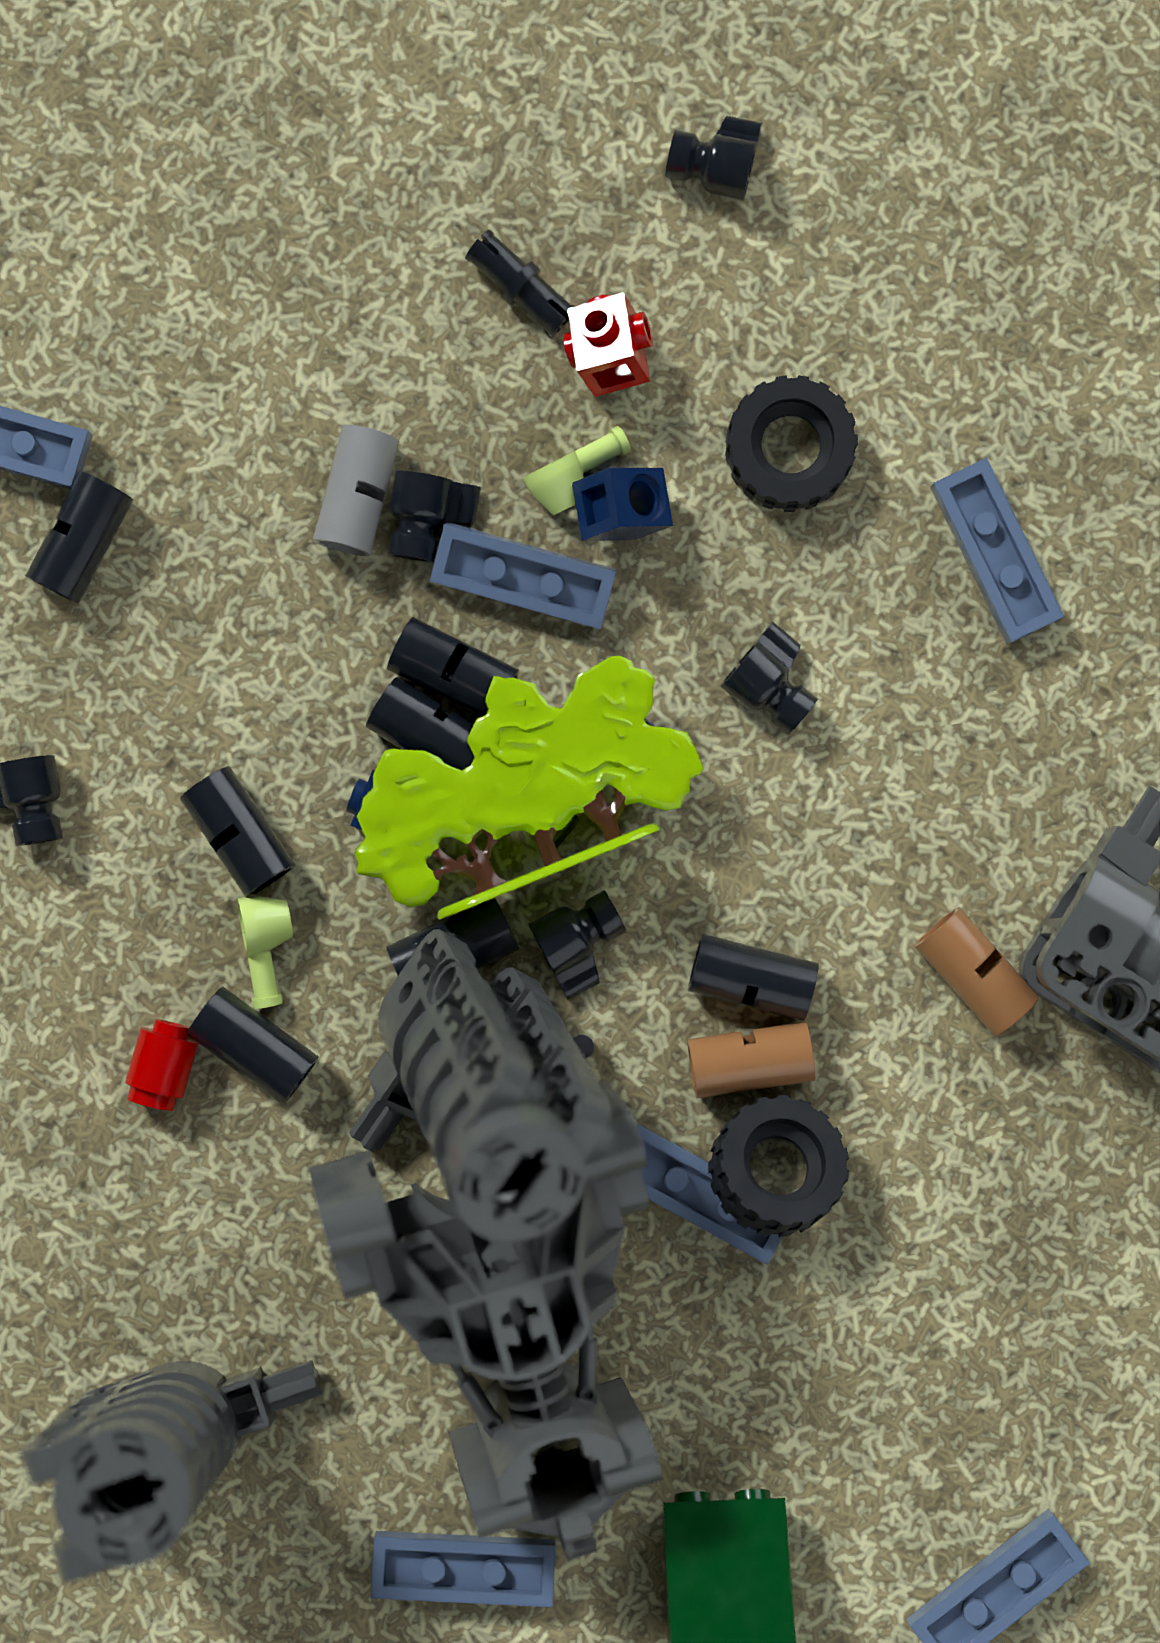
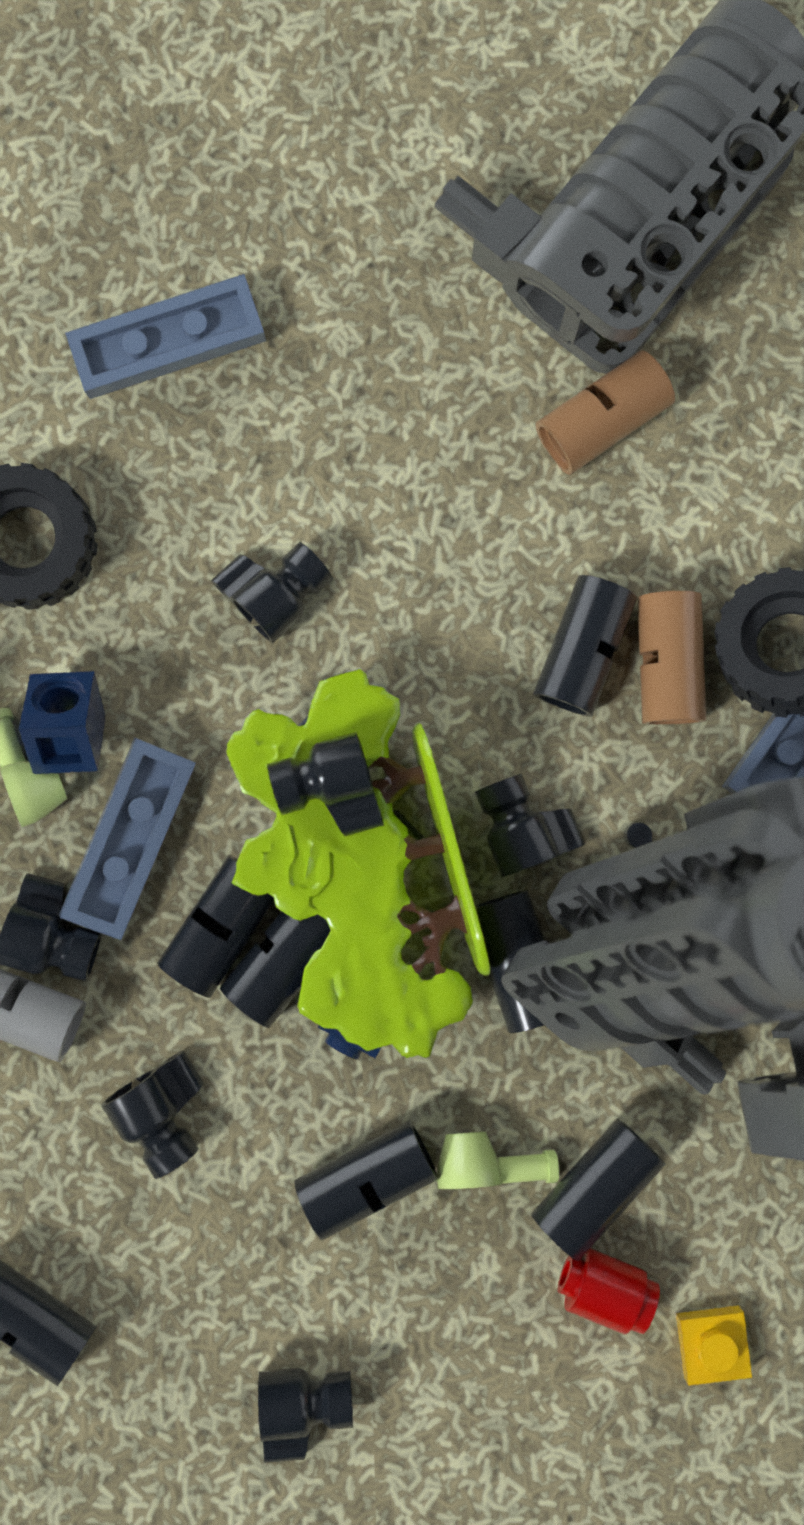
camera: 85 degrees left, 0 degrees up
(120, 1170) = (714, 1345): none -> yellow plate
(276, 626) = (149, 1111): none -> black piece
(603, 754) = (335, 775): none -> black piece

